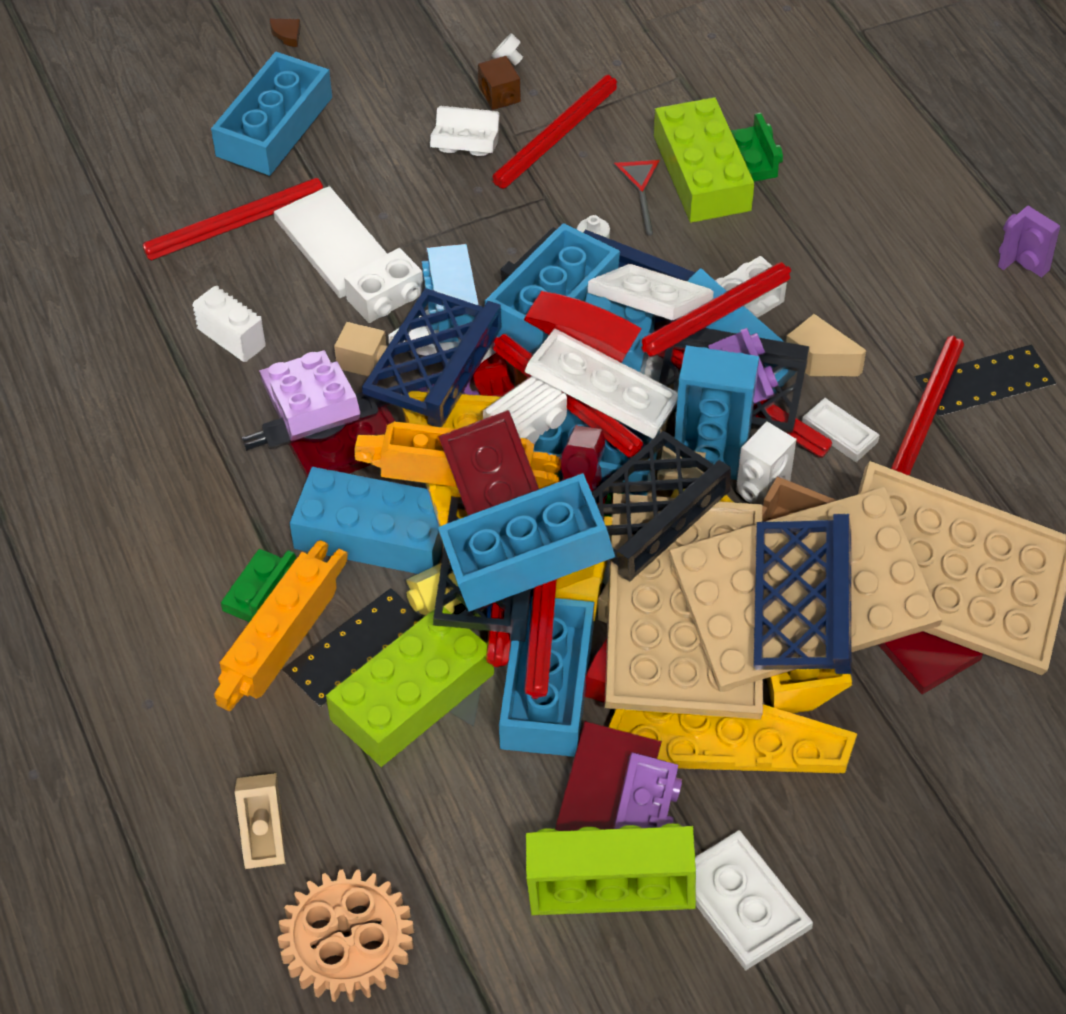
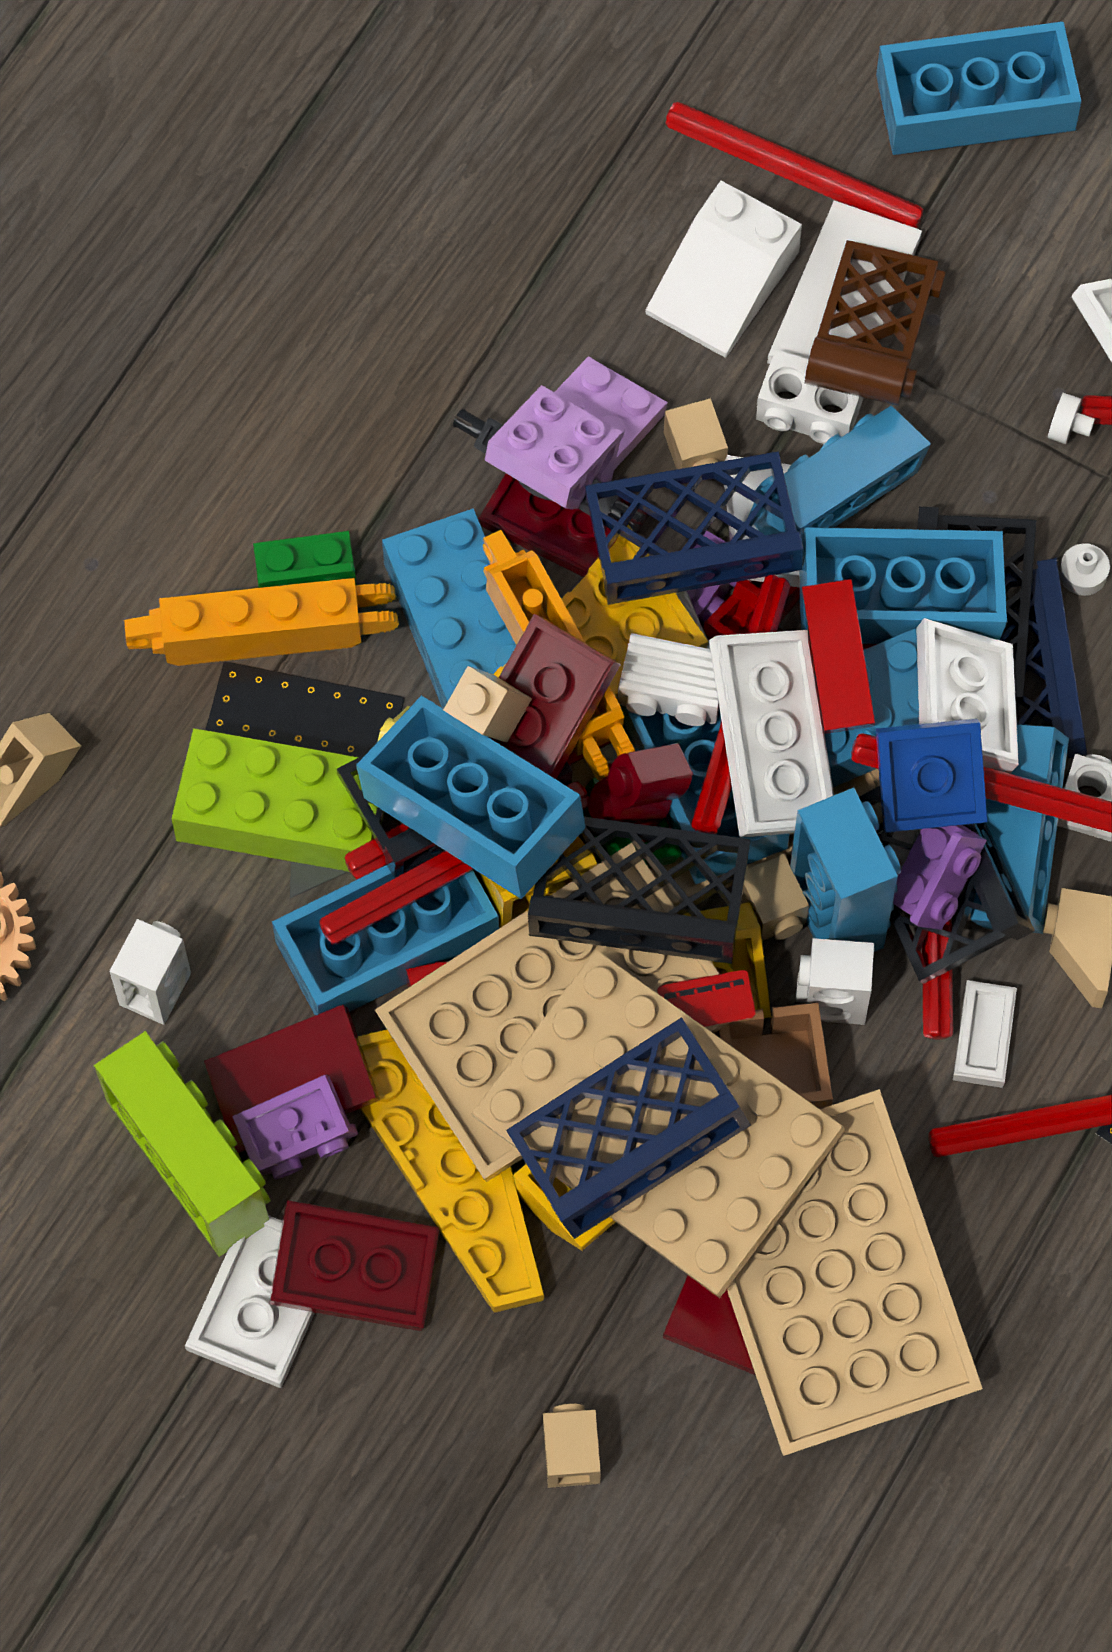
camera: 55 degrees right, 15 degrees up
(229, 323) = (624, 278): white brick -> none
(268, 276) = (725, 269): none -> white slope
(388, 242) = (860, 362): none -> reddish brown piece
(473, 819) = (151, 970): none -> white brick
(474, 491) = (487, 704): none -> tan brick
(501, 188) = (1068, 419): none -> white tile
(696, 315) = (931, 775): none -> blue plate
(744, 511) = (713, 998): none -> red sticker
(761, 829) = (354, 1265): none -> dark red tile
(969, 777) = (571, 1446): none -> tan brick

